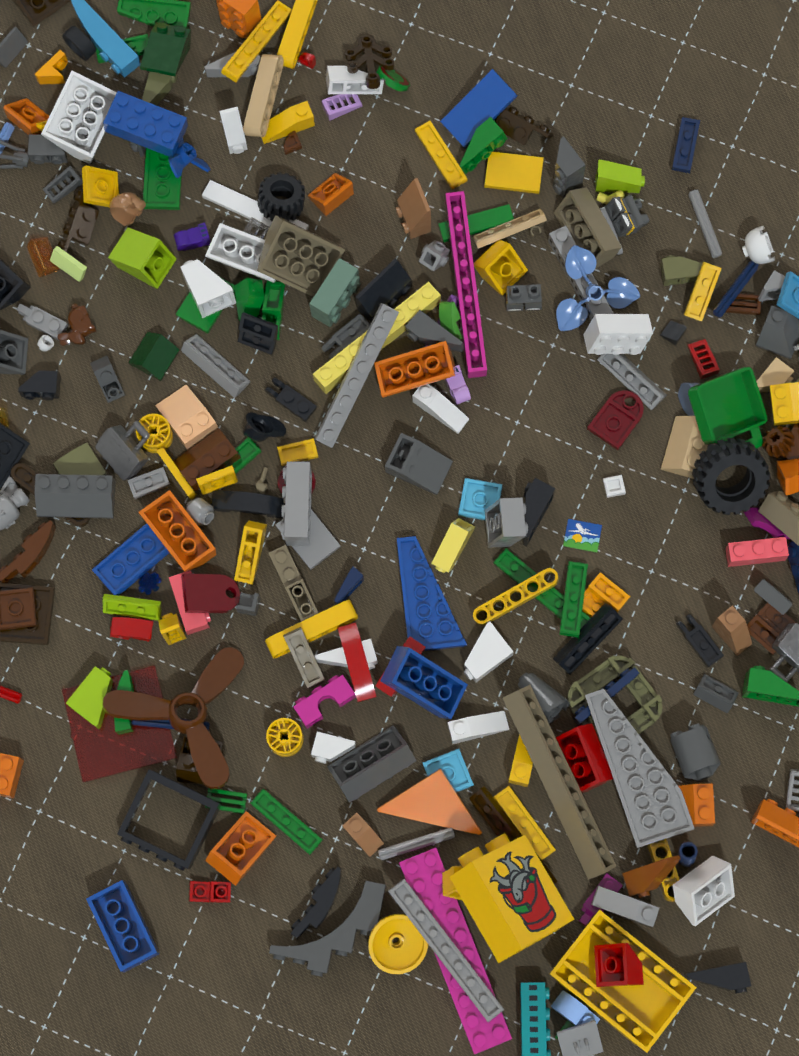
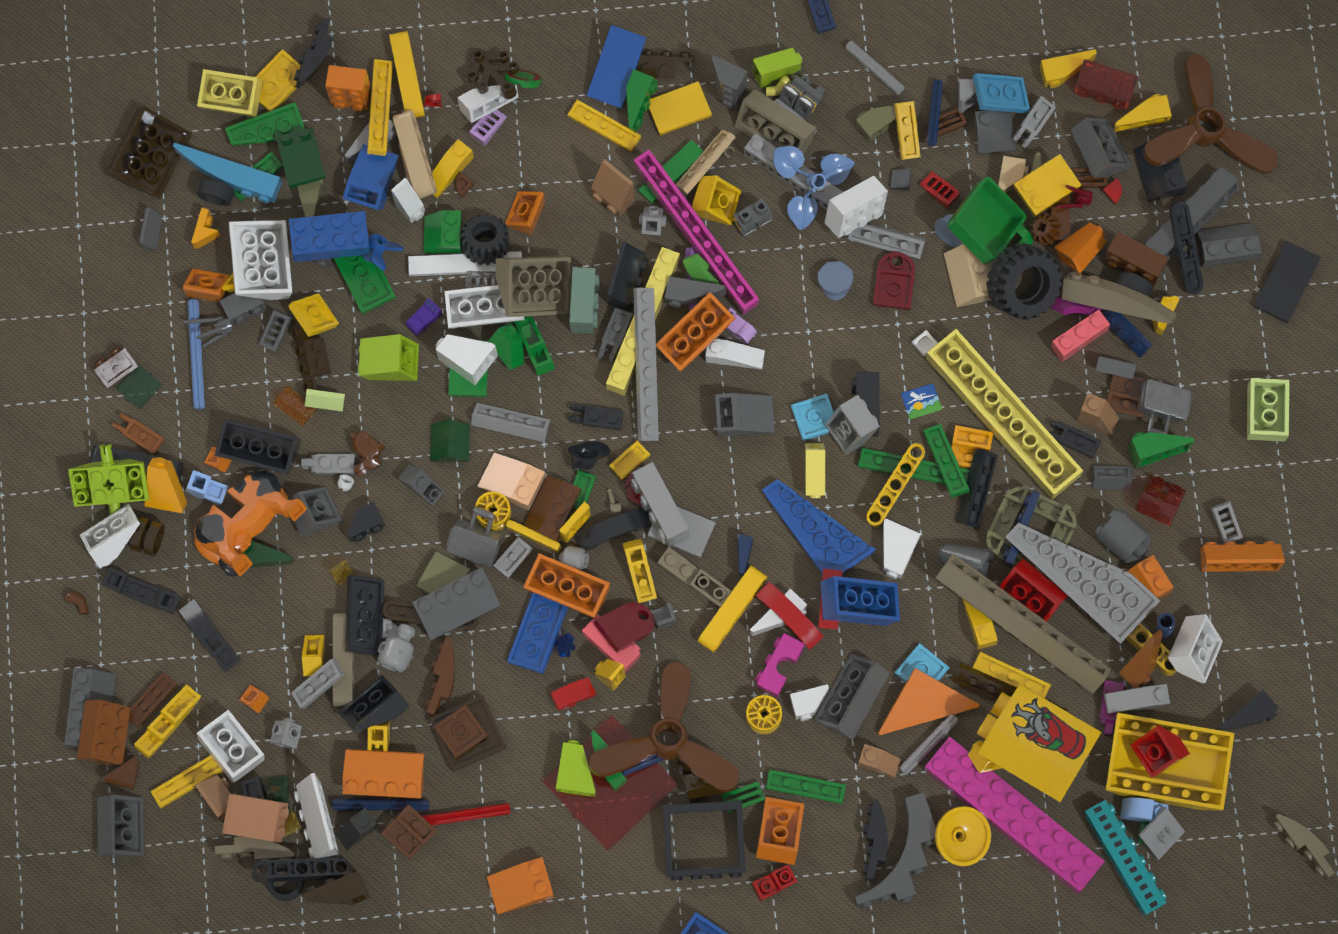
camera: 30 degrees left, 0 degrees up
(126, 208) = (348, 321): medium nougat hair -> none
(131, 607) = (562, 674): lime tile -> none
(212, 96) = (370, 179): none -> blue slope
(250, 173) = (443, 232): none -> green slope
(257, 333) = (535, 373): black slope -> none
(303, 657) = (741, 636): dark tan plate -> none
(446, 950) = (1008, 817): light grey tile -> none
(477, 726) = (924, 616): white slope -> none
(565, 389) = (835, 279): none -> sand blue hat
(648, 586) = (1004, 414): none -> light yellow brick
(748, 737) = (1160, 500): none -> clear red slope
(758, 246) = (933, 64): white cylinder -> none

